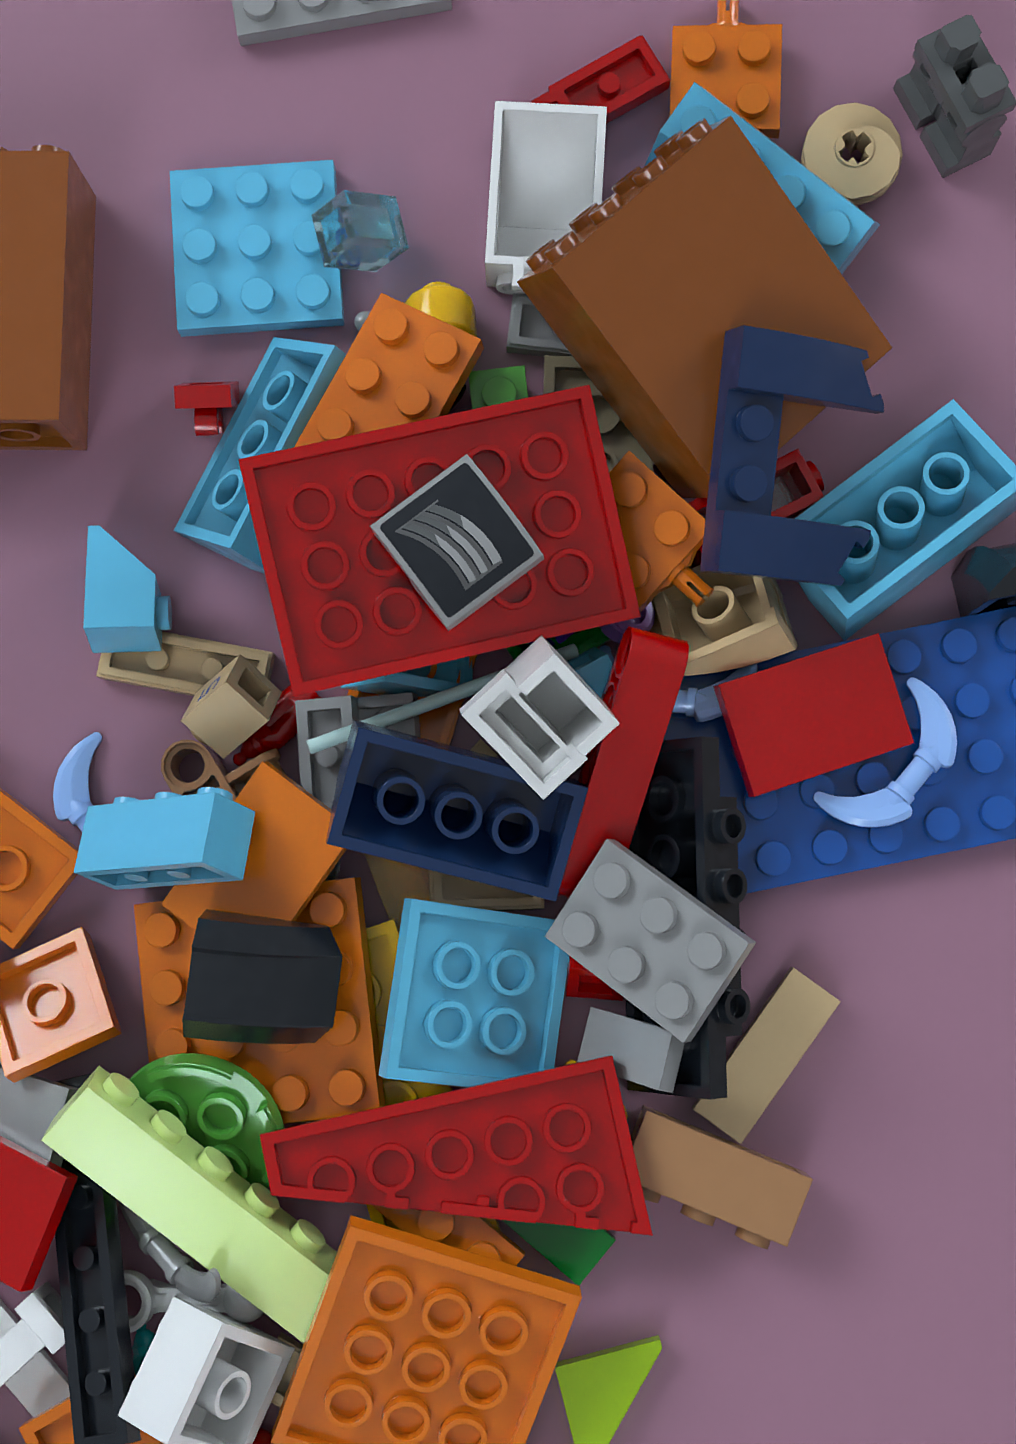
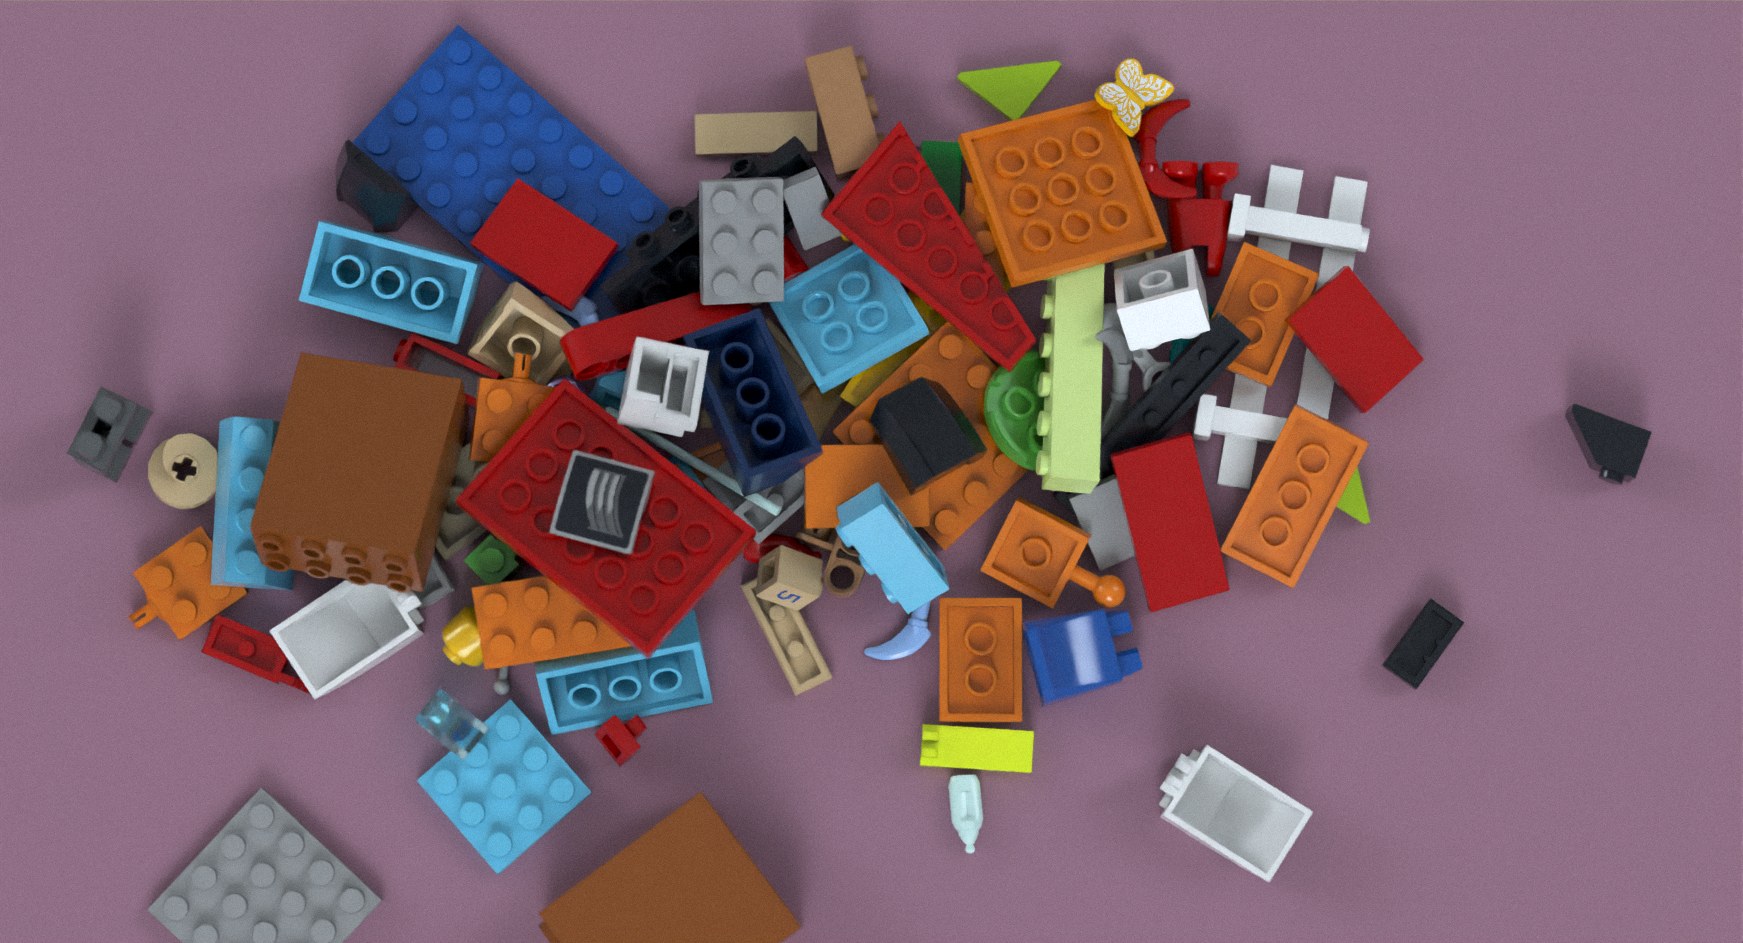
camera: 130 degrees left, 0 degrees up
(121, 599) = (774, 692): medium azure slope -> none
(756, 377) = (383, 407): dark blue wedge -> none
(893, 803) = (559, 165): light blue piece -> none

